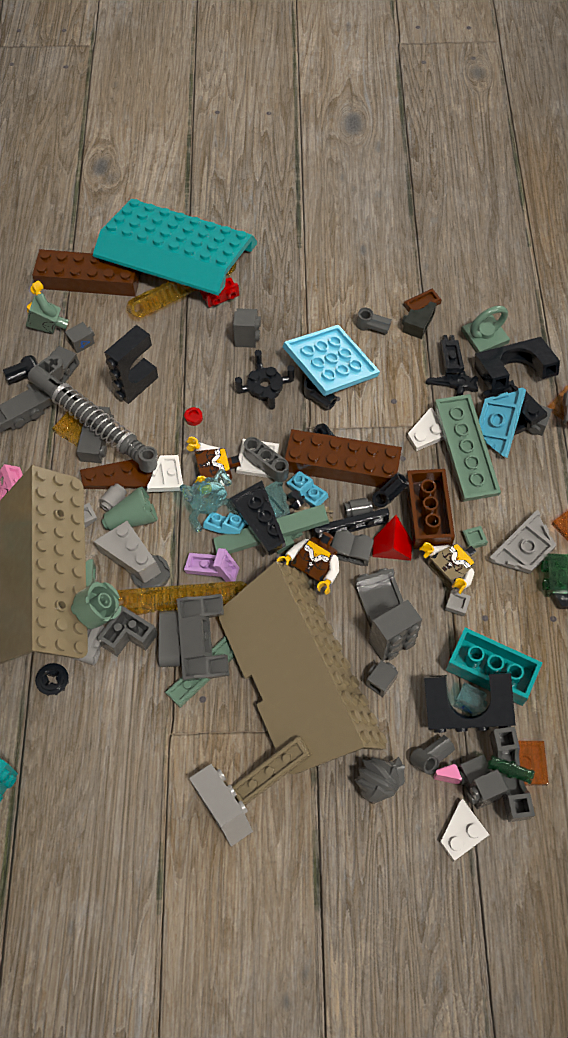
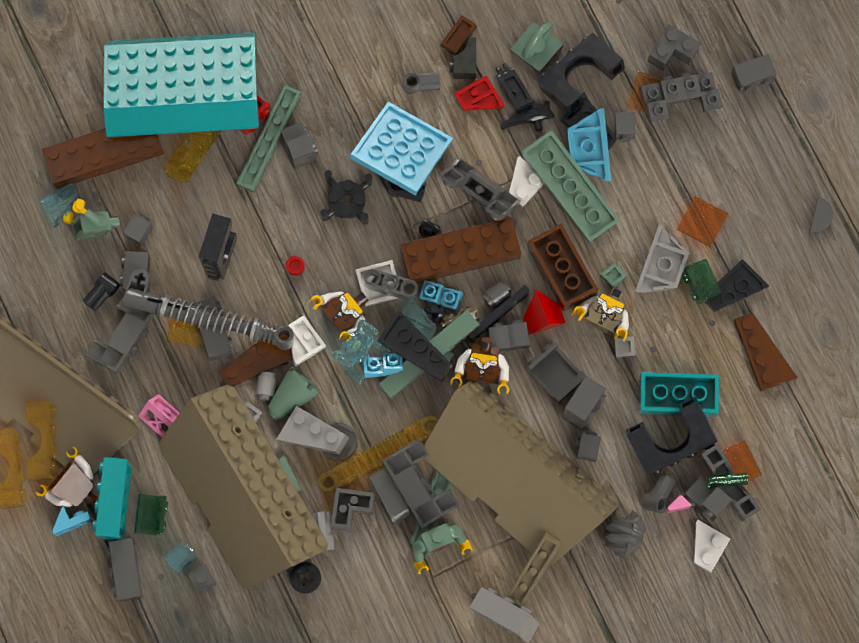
camera: 25 degrees left, 15 degrees up
(24, 294) = (59, 203): none -> clear light blue wing
(96, 605) = (316, 498): sand green brick -> none
(191, 696) = (436, 540): none -> sand green torso
(213, 565) = (392, 412): lavender bracket -> none
(224, 316) = (269, 138): none -> sand green tile
(381, 411) = (475, 184): none -> dark grey bracket
(390, 490) = (520, 266): black piece -> none
(418, 350) = (479, 96): none -> red wing
(471, 700) = (671, 432): clear light blue brick -> none
(530, 408) = (614, 122): black hinge -> none

